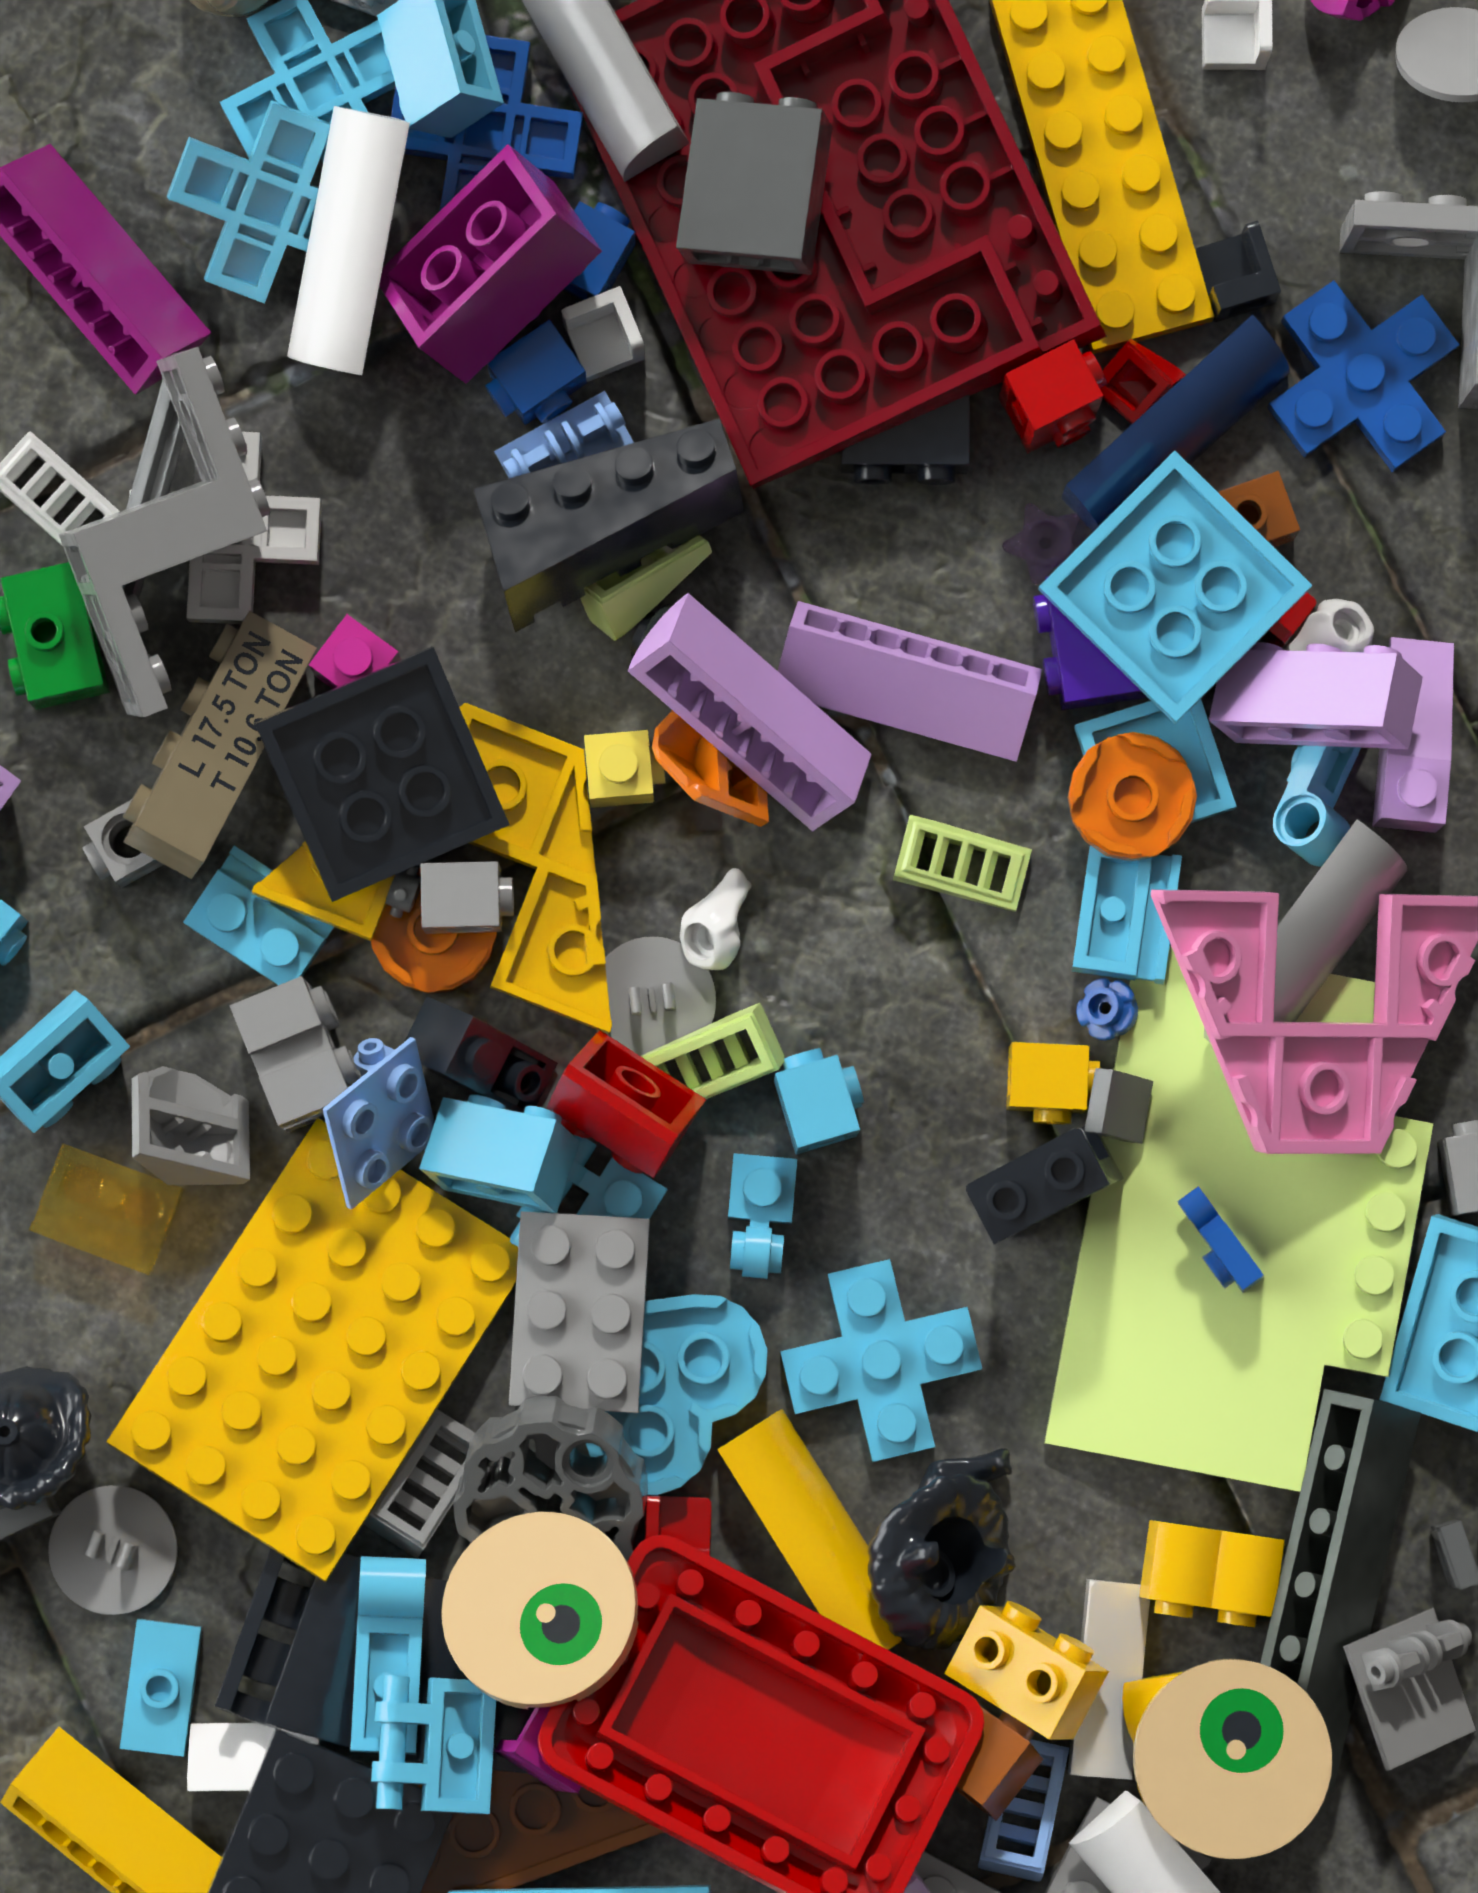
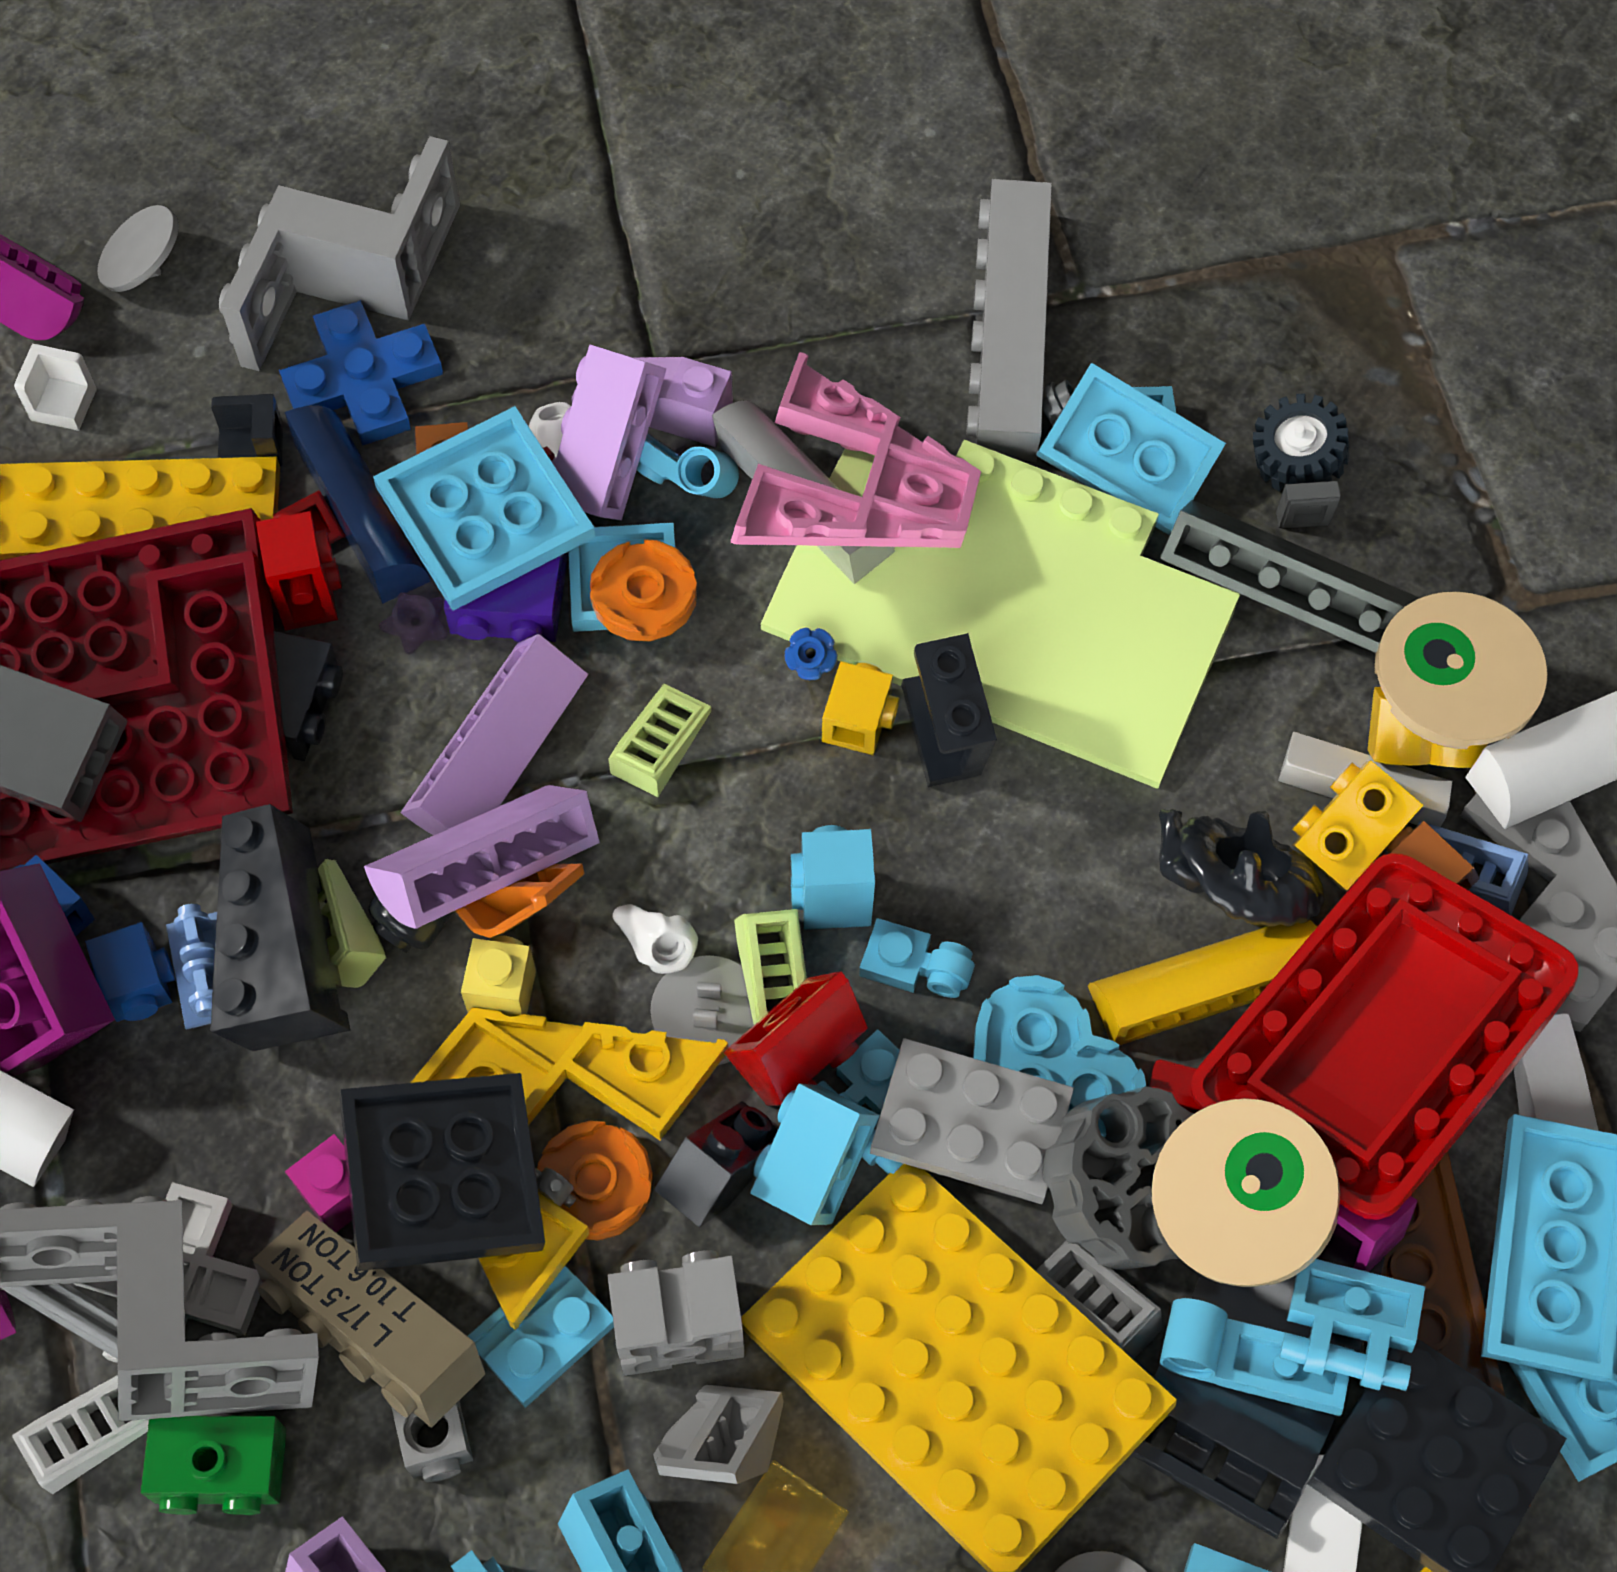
camera: 75 degrees left, 20 degrees down
(379, 1118) = (755, 1244): light blue hinge -> none
(464, 897) = (574, 1132): light grey brick -> none
(603, 333) = (114, 901): white panel -> none
(881, 1360) = (1064, 895): medium azure plate -> none
(1118, 920) = (739, 622): medium azure plate -> none
(1118, 1105) = (890, 655): dark grey tile -> none
(1210, 1570) = (1290, 678): yellow brick -> none
(1227, 1256) = (1034, 594): blue plate -> none
(1412, 1685) = (1398, 556): light grey hinge -> none

